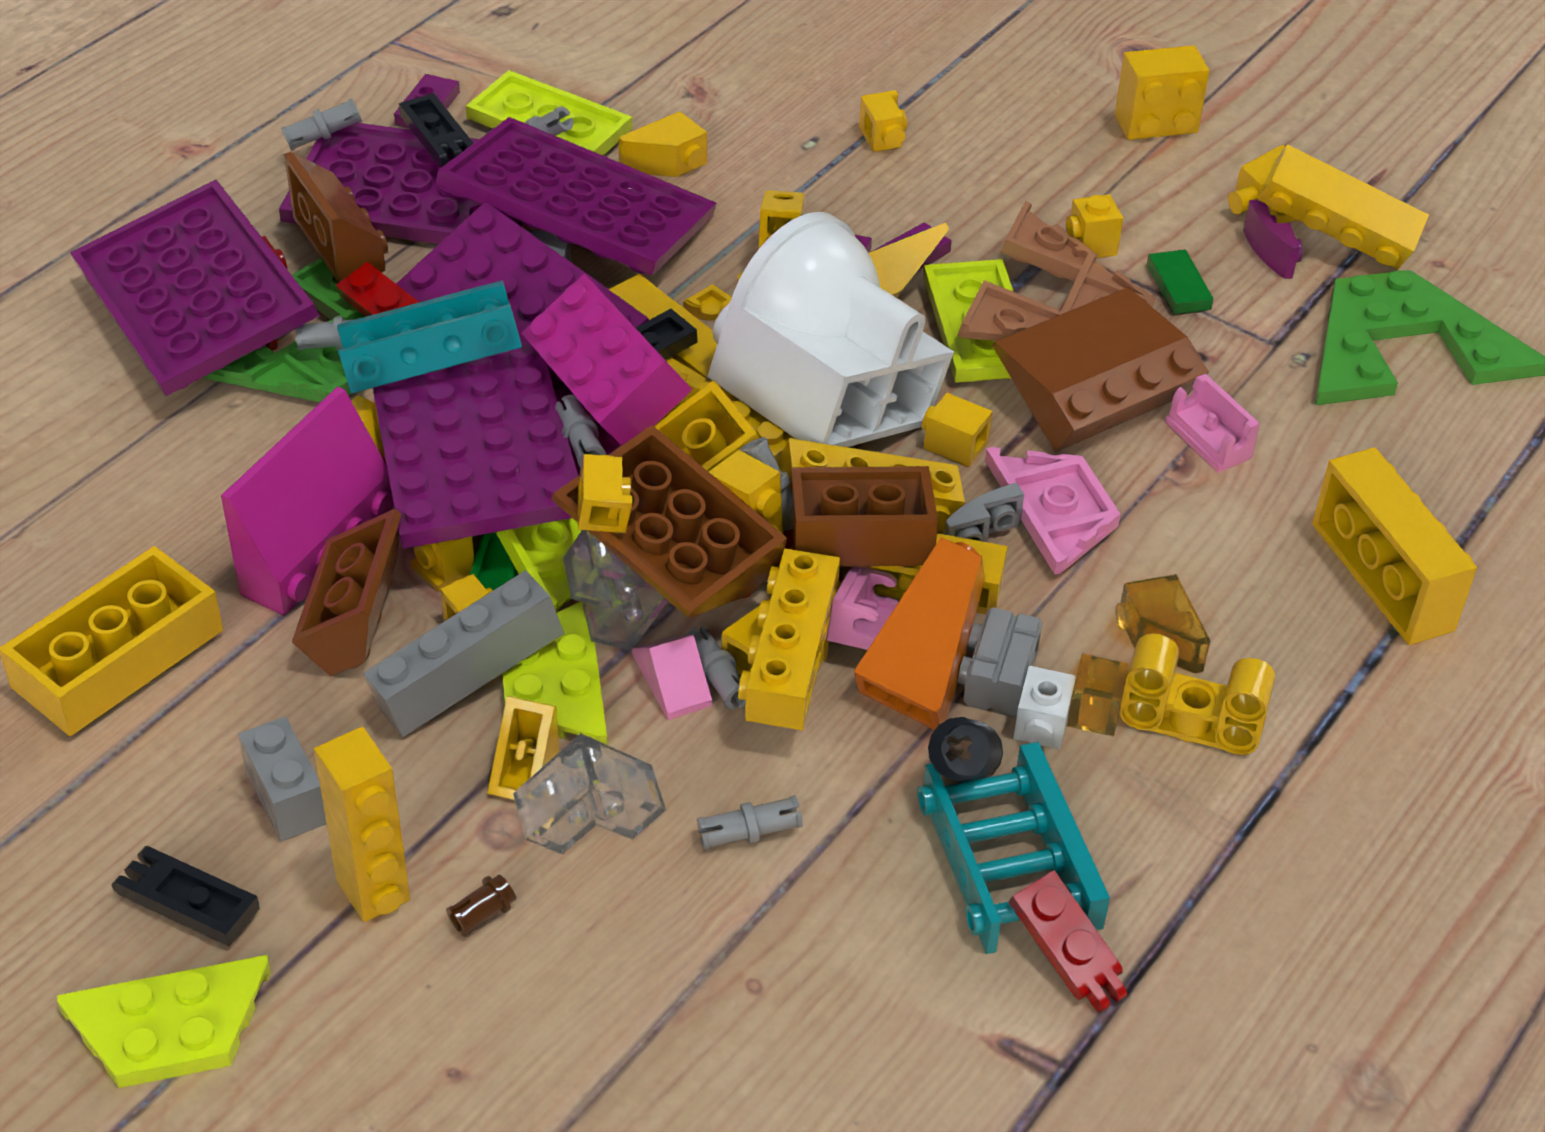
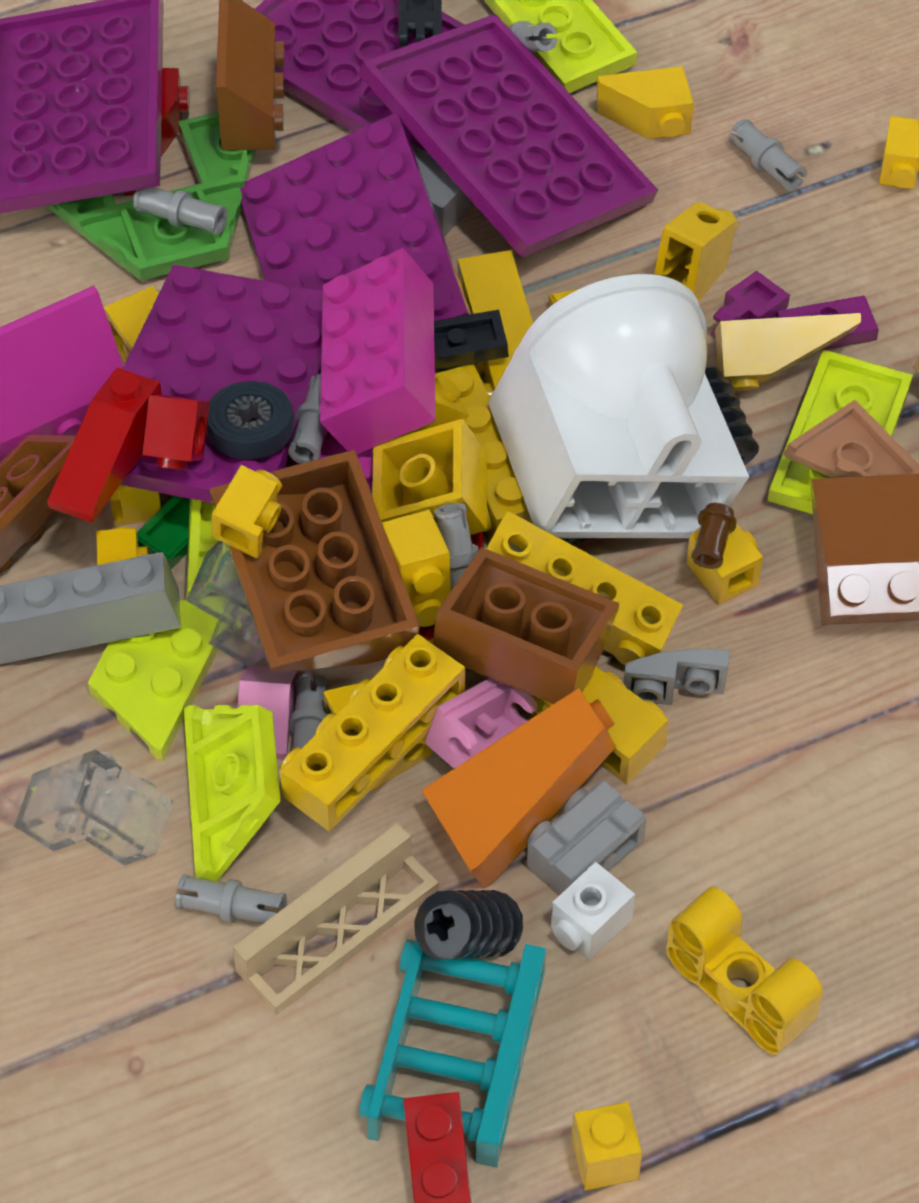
camera: 30 degrees right, 10 degrees up
(372, 291) = (244, 188): red hinge -> none
(427, 336) = (240, 251): teal fence -> none
(429, 501) = (105, 445): none -> red slope
(486, 466) = (175, 430): none -> red brick
(516, 443) = (240, 404): none -> black bush
(524, 744) = (73, 727): yellow slope -> none
(687, 728) = (229, 781): none -> neon yellow wing
(781, 155) = (767, 155): none -> light grey pin
(831, 789) = (323, 904): none -> tan fence
(946, 397) = (715, 525): none -> reddish brown pin
(1061, 504) = (771, 687): bright pink wing -> none
(1098, 693) = (646, 914): clear yellow slope -> none
(1164, 608) = (780, 868): clear yellow slope -> none
(1185, 866) = (606, 1146): none -> yellow brick

